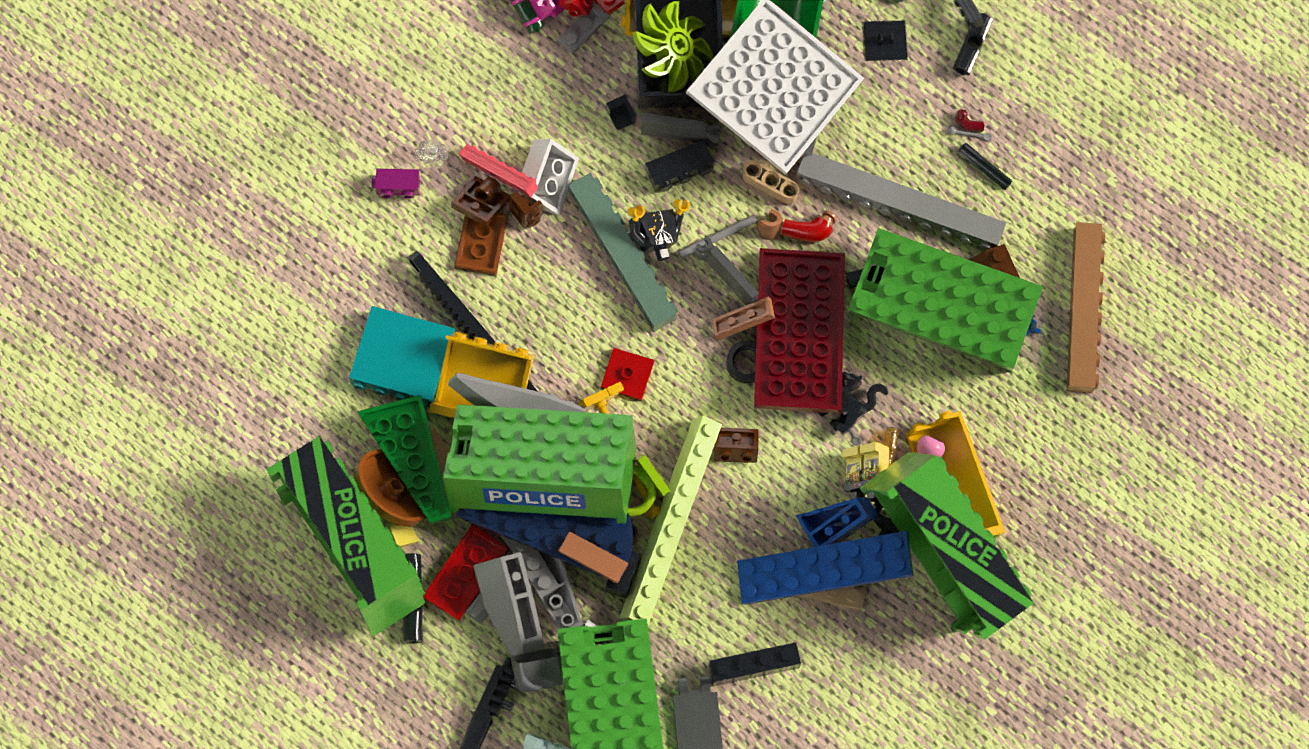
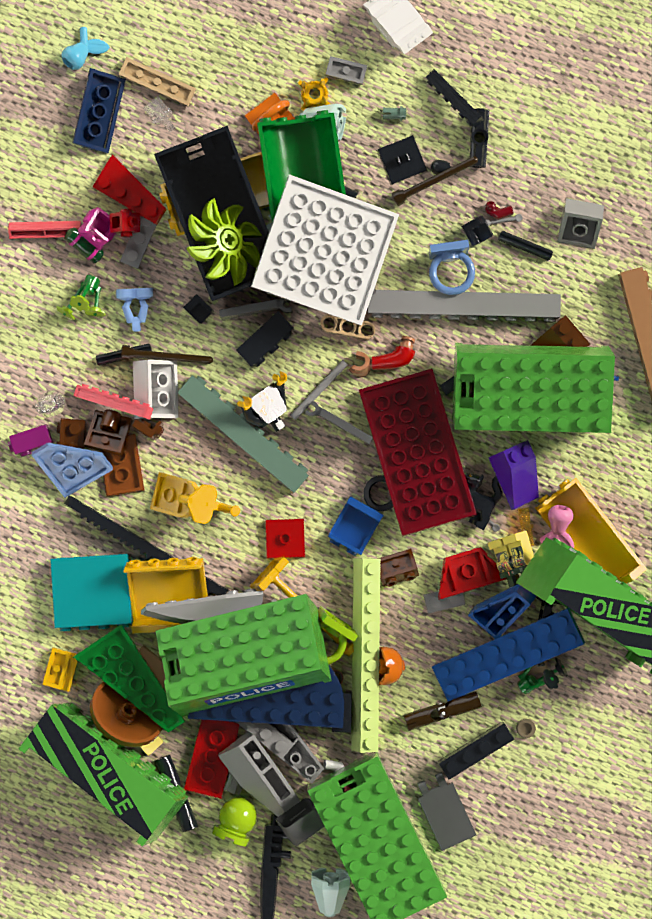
camera: 15 degrees left, 15 degrees up
(338, 425) = (60, 669): none -> yellow plate
(428, 220) = (70, 466): none -> medium blue plate
(439, 196) = (71, 432): none -> reddish brown bracket
(467, 646) = (236, 820): none -> lime tile
(502, 59) = (89, 287): none -> plant
(525, 132) = (116, 355): none -> black axle
(533, 129) = (128, 353): none -> dark brown piece
(537, 288) = (185, 499): none -> yellow plate
(555, 74) = (128, 295): none -> light blue piece
(593, 557) = (314, 717): nougat tile -> none
(692, 541) = (390, 666): none -> orange cylinder
(707, 385) = (354, 526): none -> blue panel
(742, 318) = (366, 459): nougat tile -> none
(750, 611) = (451, 708): none -> dark brown piece
(775, 495) = (434, 604): none -> light grey plate
(810, 473) = (467, 572): none -> red wing
(817, 662) = (525, 728): none -> dark tan tile
(838, 613) = (528, 682): none -> plant
(872, 73) = (401, 196): none -> dark brown piece
(898, 387) = (517, 473): none -> dark purple slope
(903, 141) = (447, 253): none -> medium blue tile
(924, 61) = (439, 166): none -> black cylinder
(940, 132) = (477, 230): none -> black panel
(1050, 162) = (580, 223): none -> light grey slope

